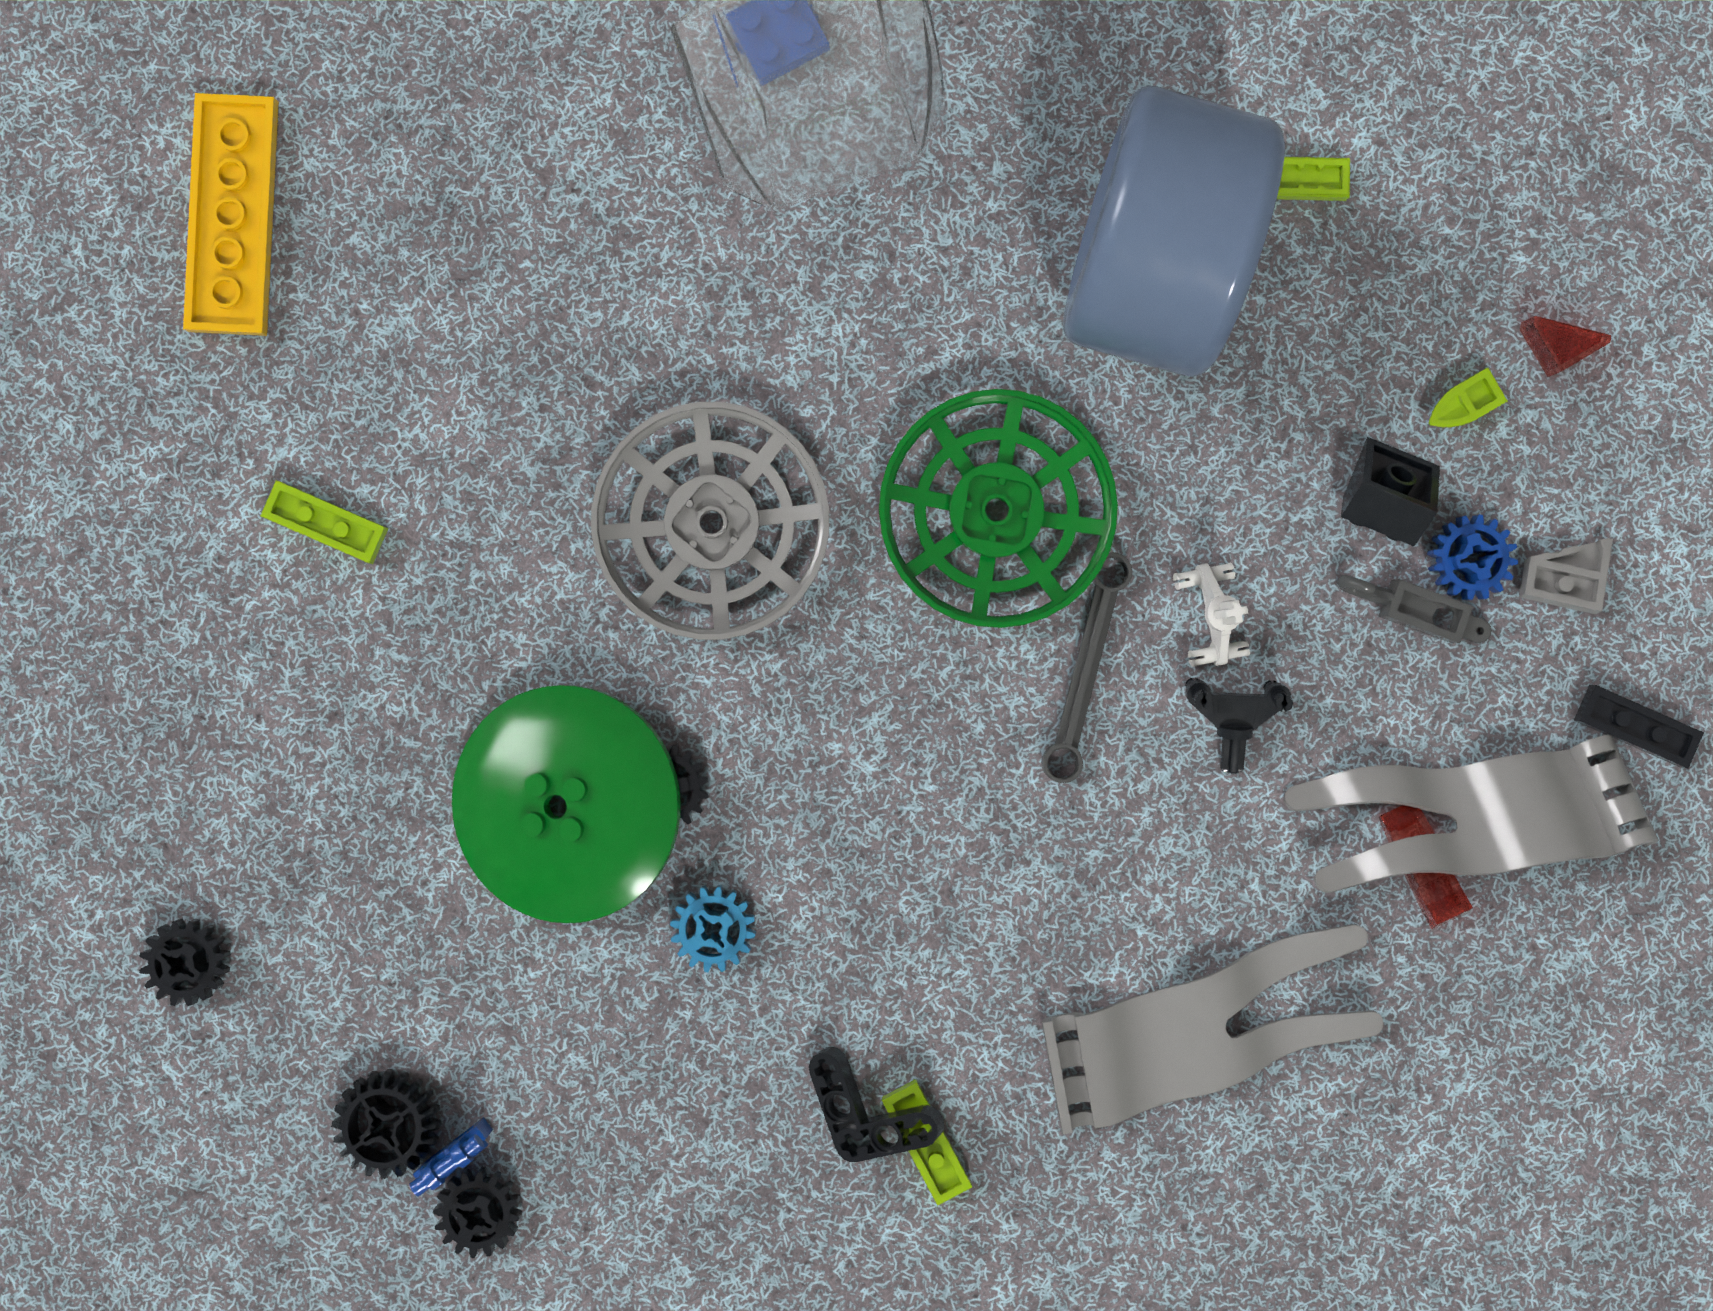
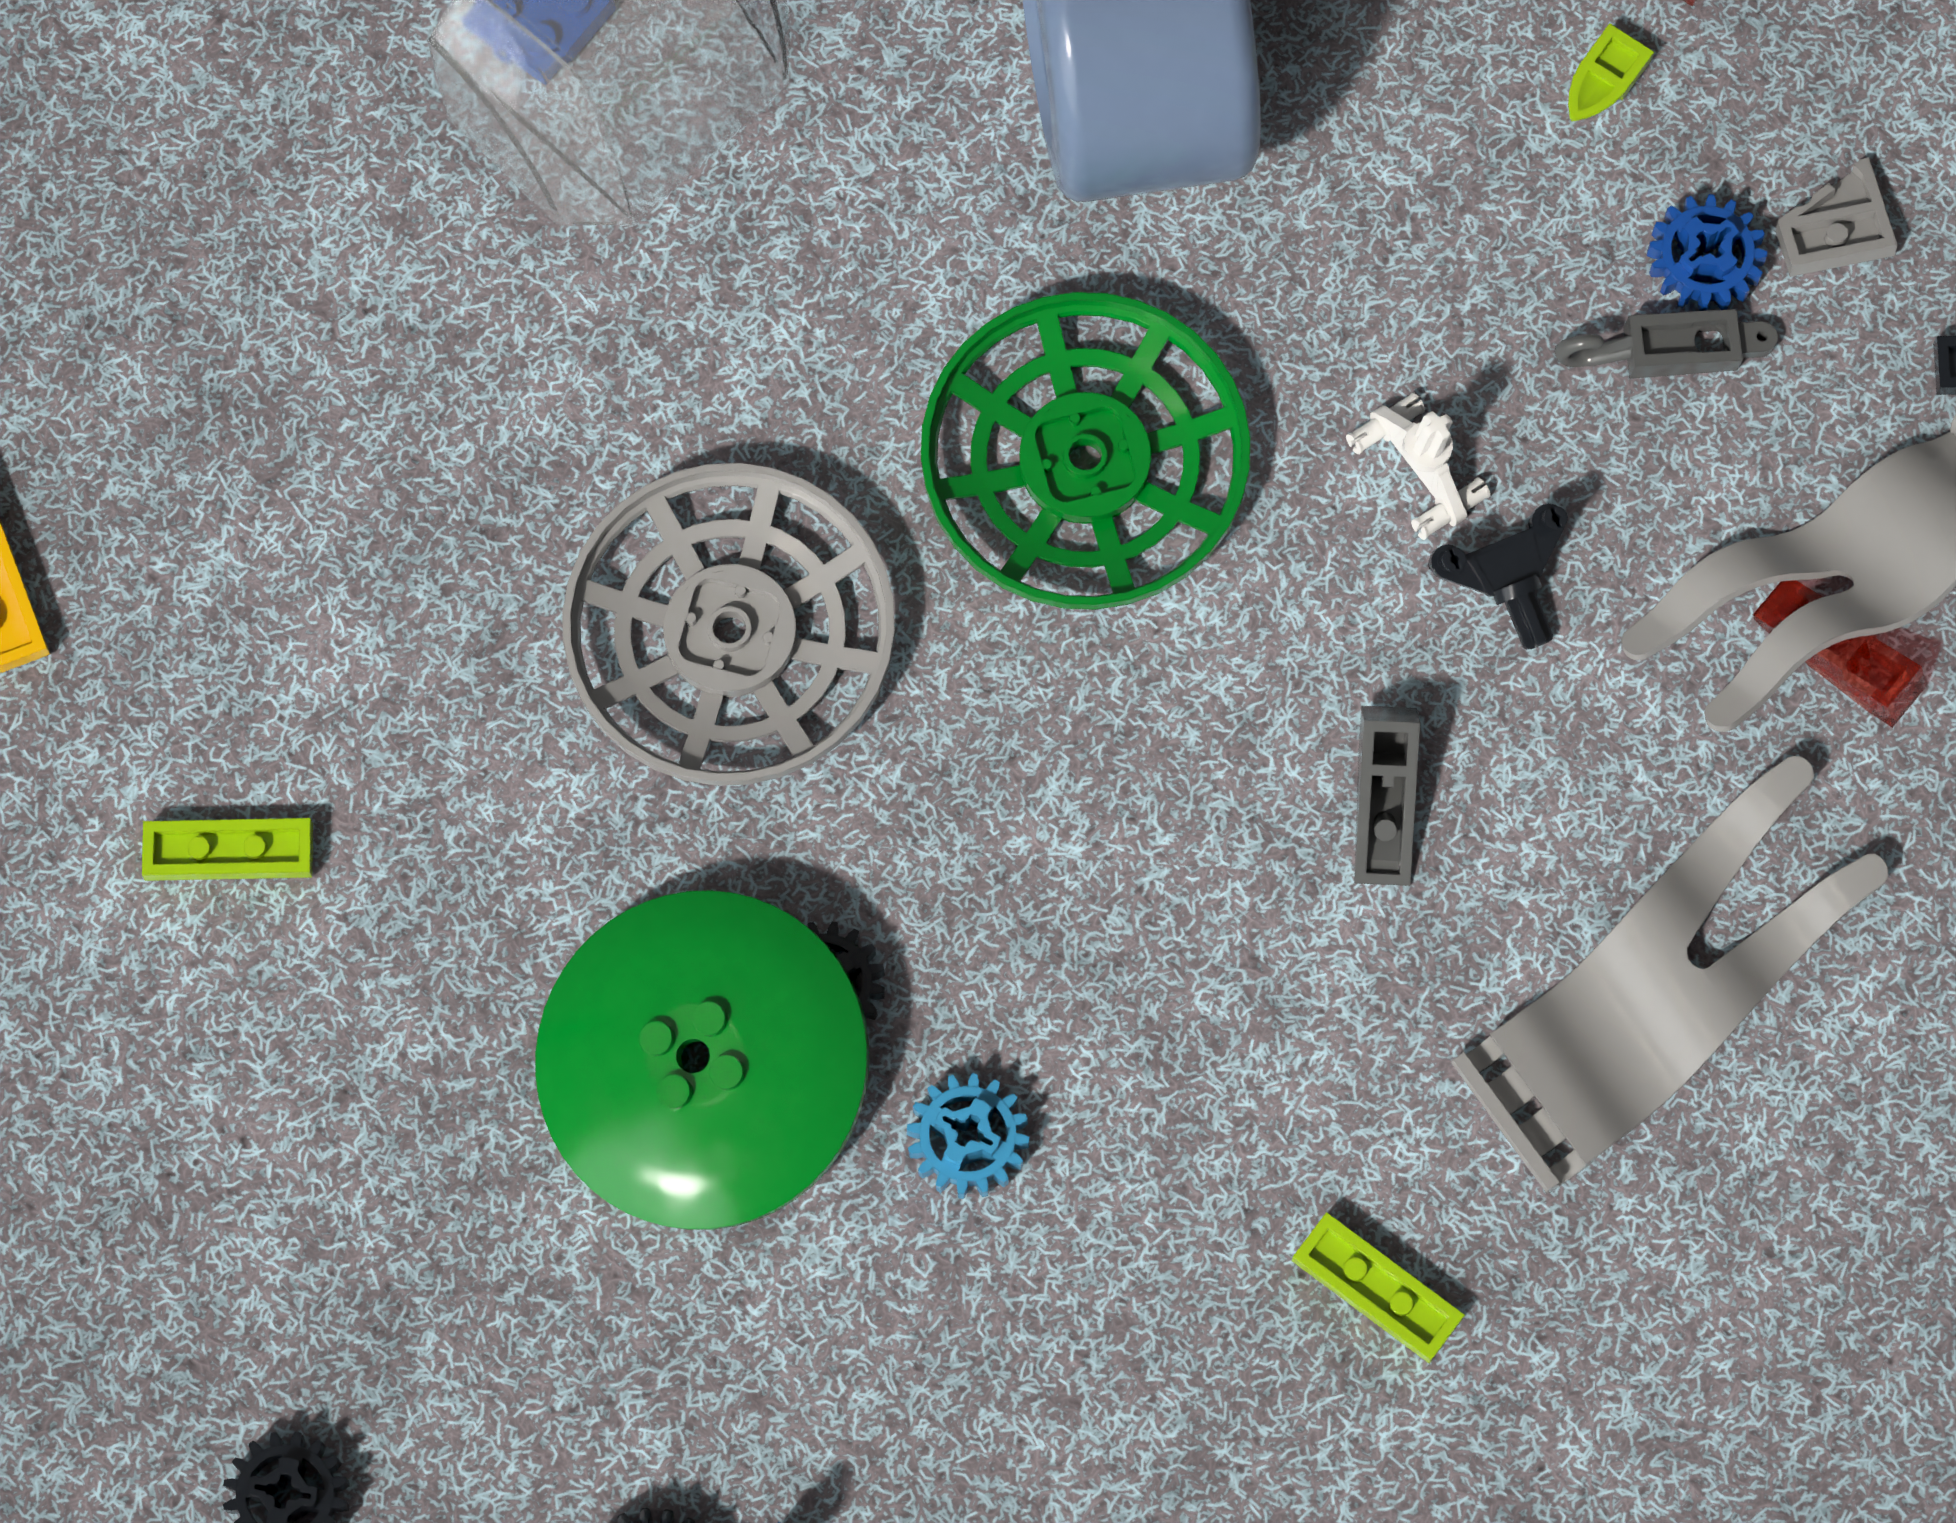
camera: 25 degrees left, 15 degrees down
(857, 1122) = (1271, 1298): black beam -> none
(1086, 670) = (1293, 603): dark grey piece -> none
(1086, 825) = (1386, 794): none -> dark grey slope
(1392, 492) = (1567, 221): black slope -> none

